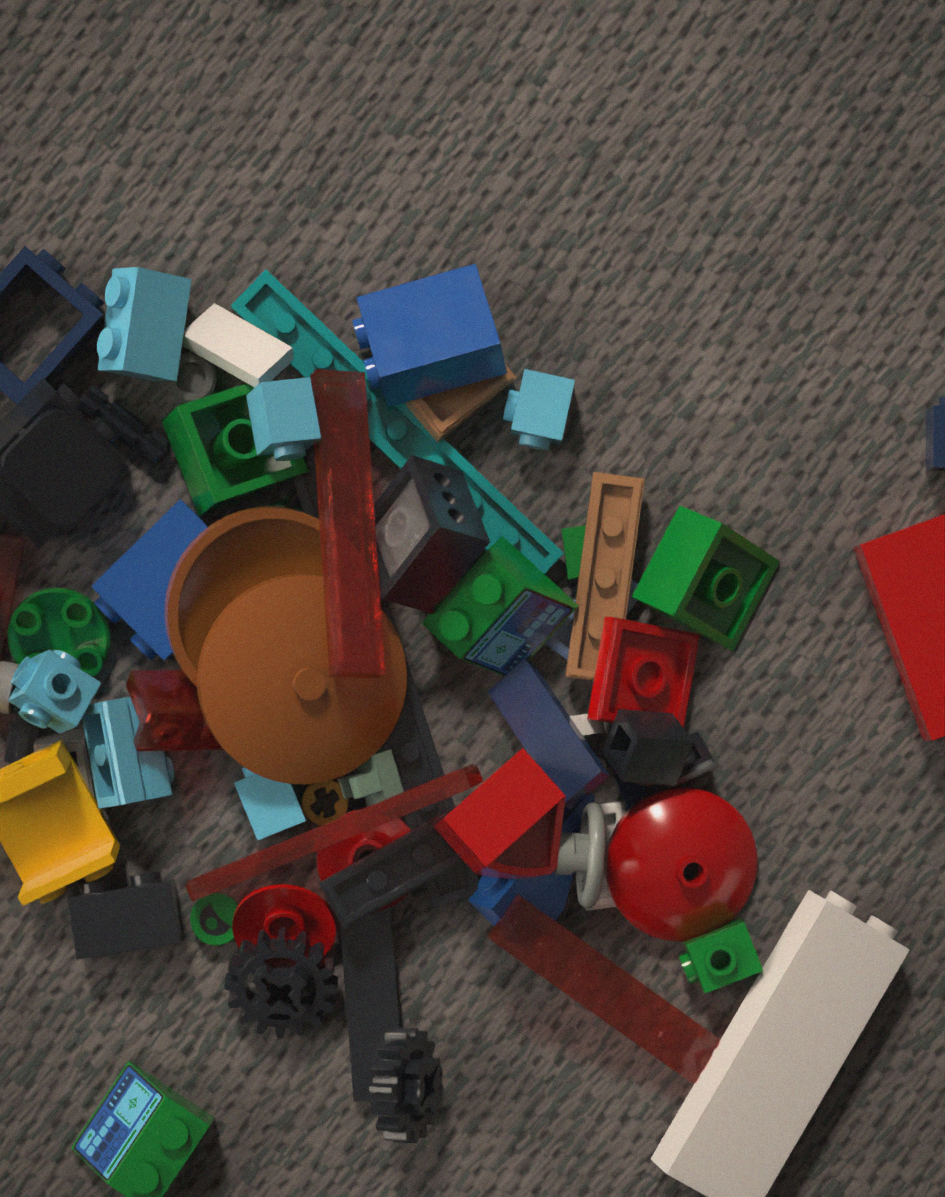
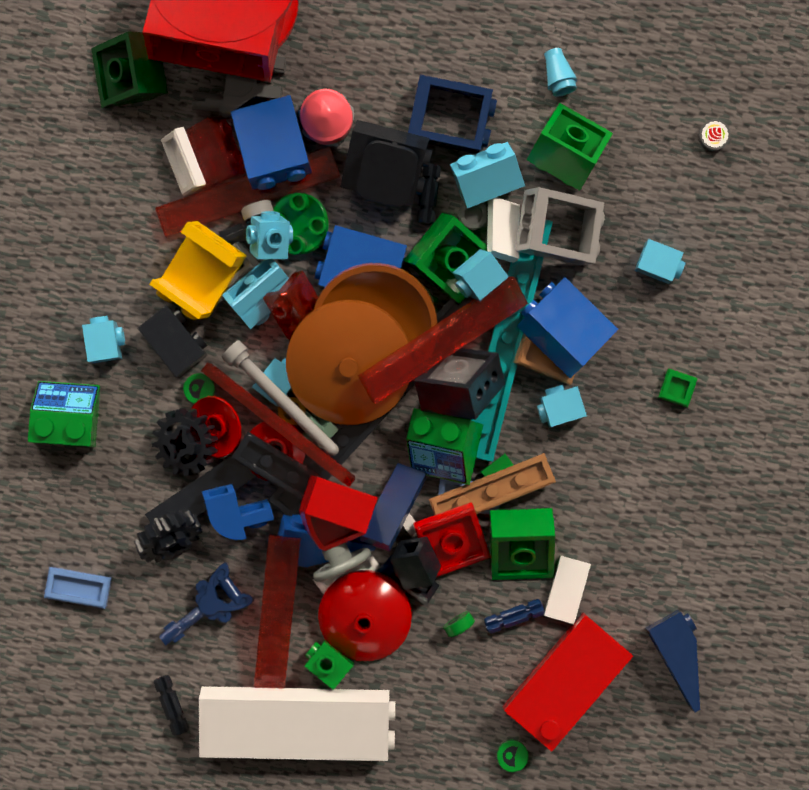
camera: 65 degrees right, 0 degrees up
(57, 137) = (559, 73): none -> medium azure cone
(65, 1018) = (103, 340): none -> medium azure brick
(172, 183) = (569, 146): none -> green slope
(202, 835) = (238, 356): none -> light grey piece
(252, 297) = (533, 222): none -> light grey window
(412, 148) = (660, 262): none -> medium azure brick
(426, 981) = (230, 518): none -> blue brick
(537, 1081) = (209, 604): none -> dark blue piece
(608, 227) = (677, 388): none -> green tile
(770, 735) = (459, 624): none -> green tile
(803, 649) = (514, 616): none -> dark blue axle
(808, 551) = (567, 589): none -> white tile

